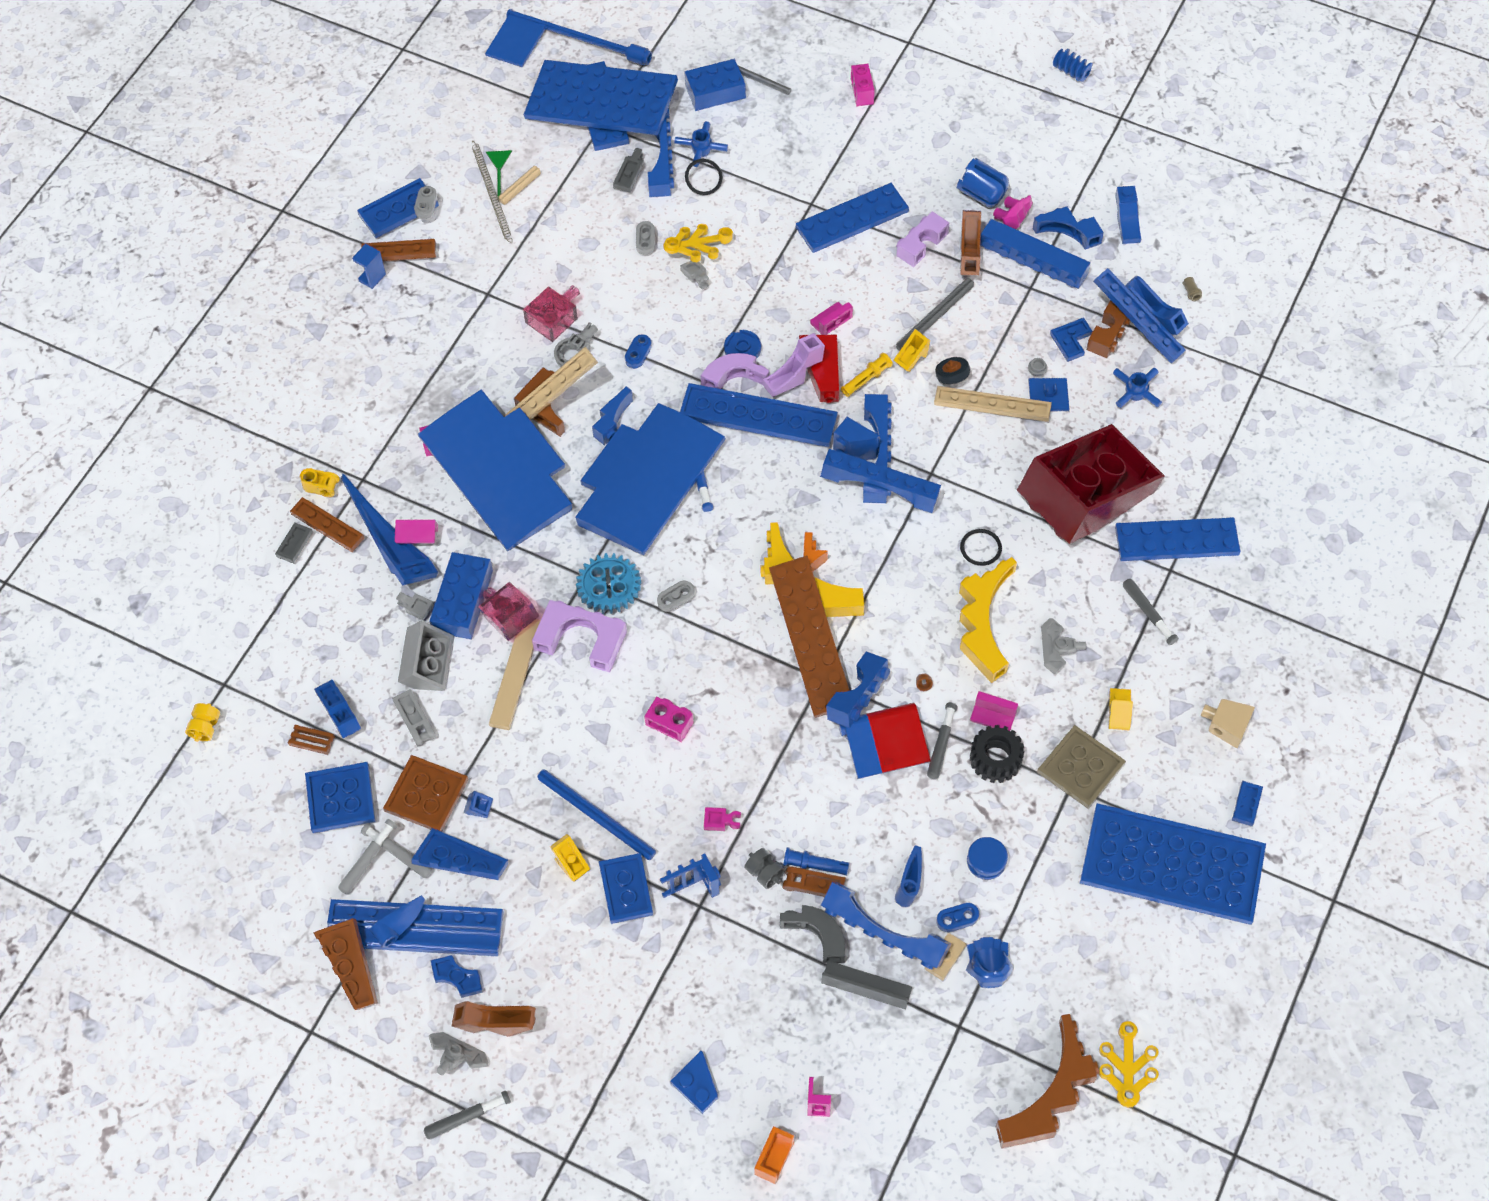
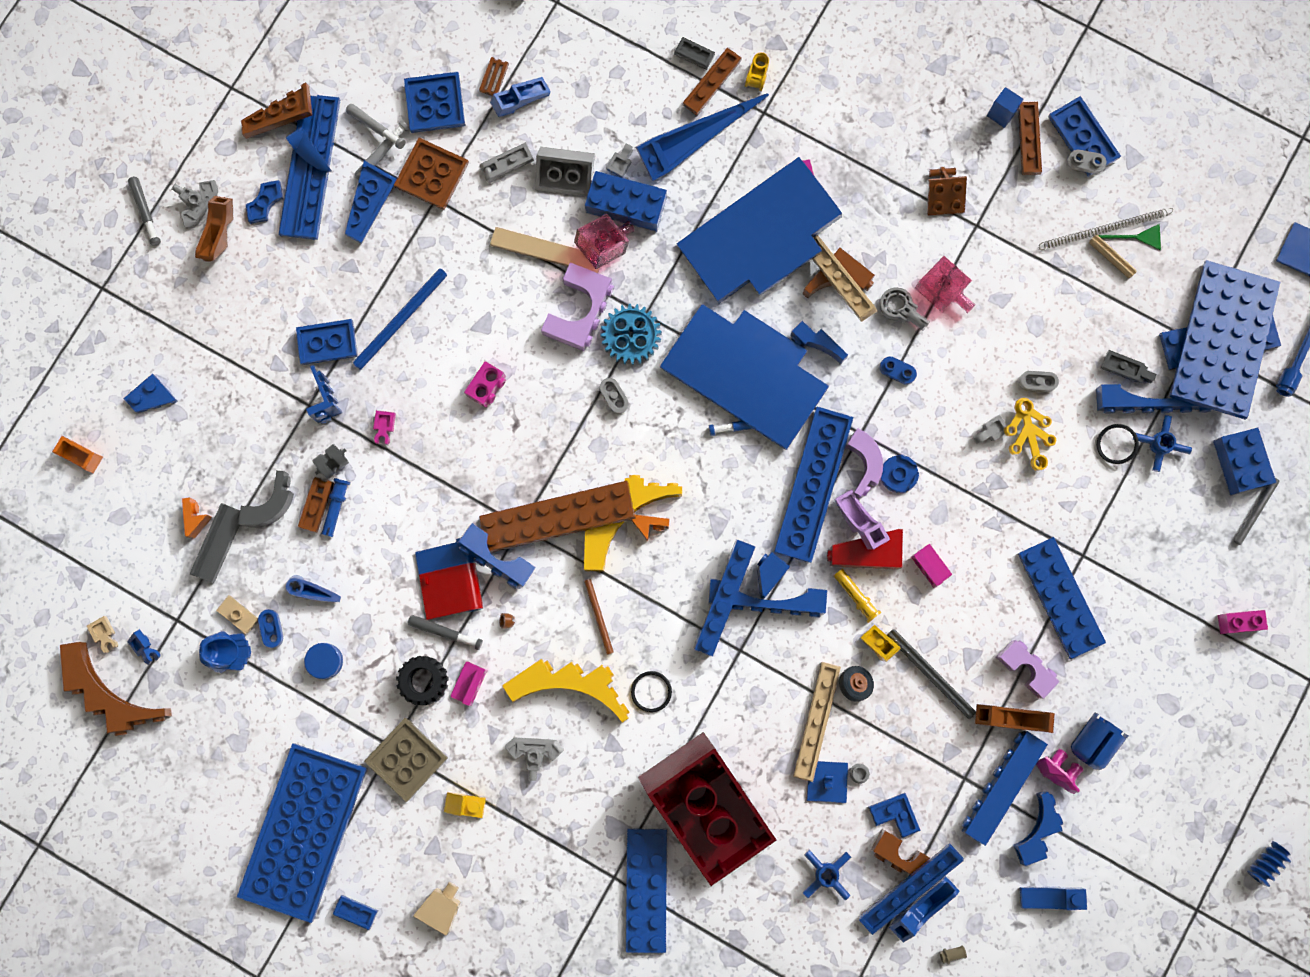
camera: 95 degrees right, 20 degrees up
(415, 531) = (697, 159): dark pink panel -> none
(455, 312) = (946, 193): none -> dark orange plate
(478, 804) = (419, 218): blue slope -> none
(569, 858) = (357, 294): yellow slope -> none
(818, 1104) = (111, 491): dark pink panel -> none
(841, 901) = (237, 592): blue arch -> none
(846, 1013) = (192, 522): none -> orange slope
(909, 598) = (598, 616): none -> dark orange bar
(981, 1104) = (101, 632): none -> tan plate
(992, 1055) = (140, 645): none -> blue plate
(1128, 1068) = (120, 762): yellow plant -> none
(1142, 601) = (572, 846): dark grey piece -> none

